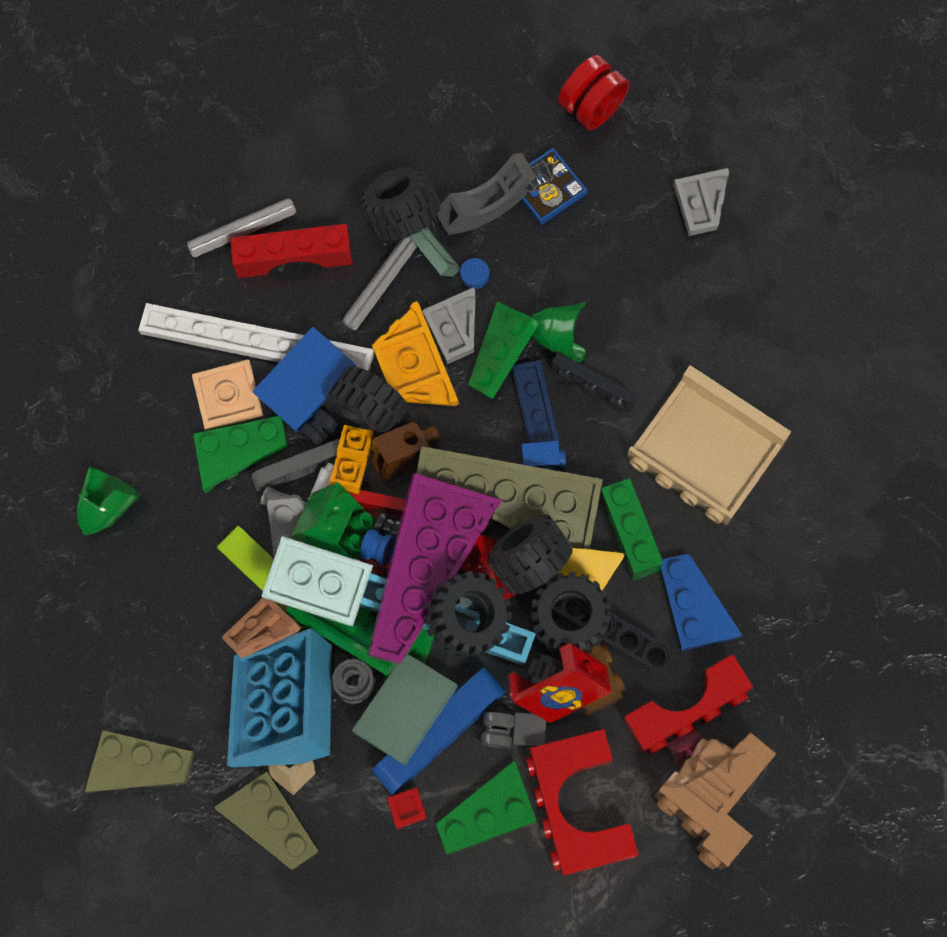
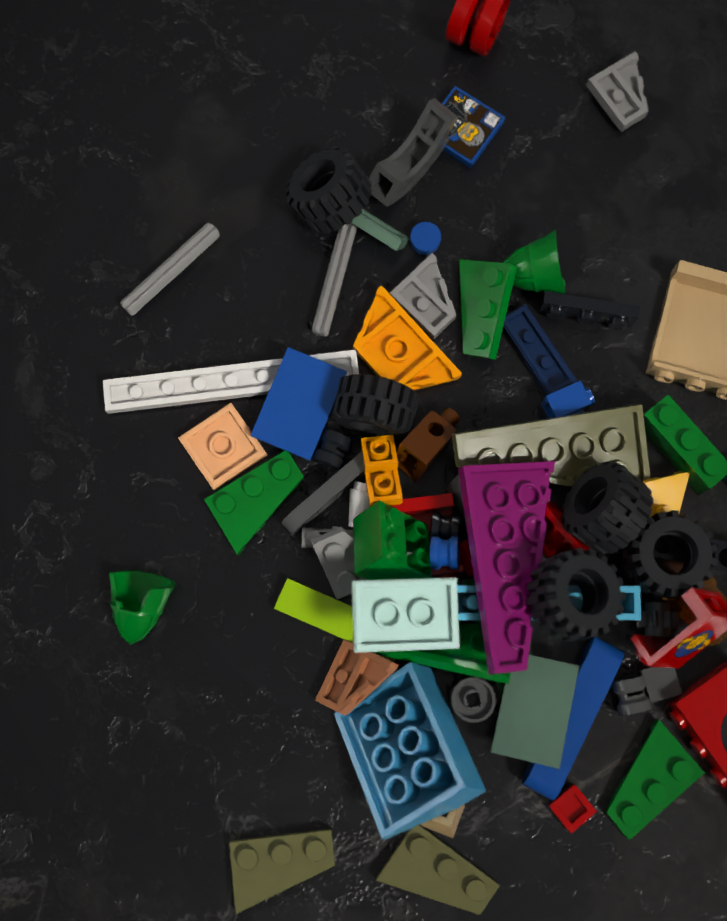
camera: 25 degrees left, 5 degrees up
(262, 252) = (259, 261): red arch -> none

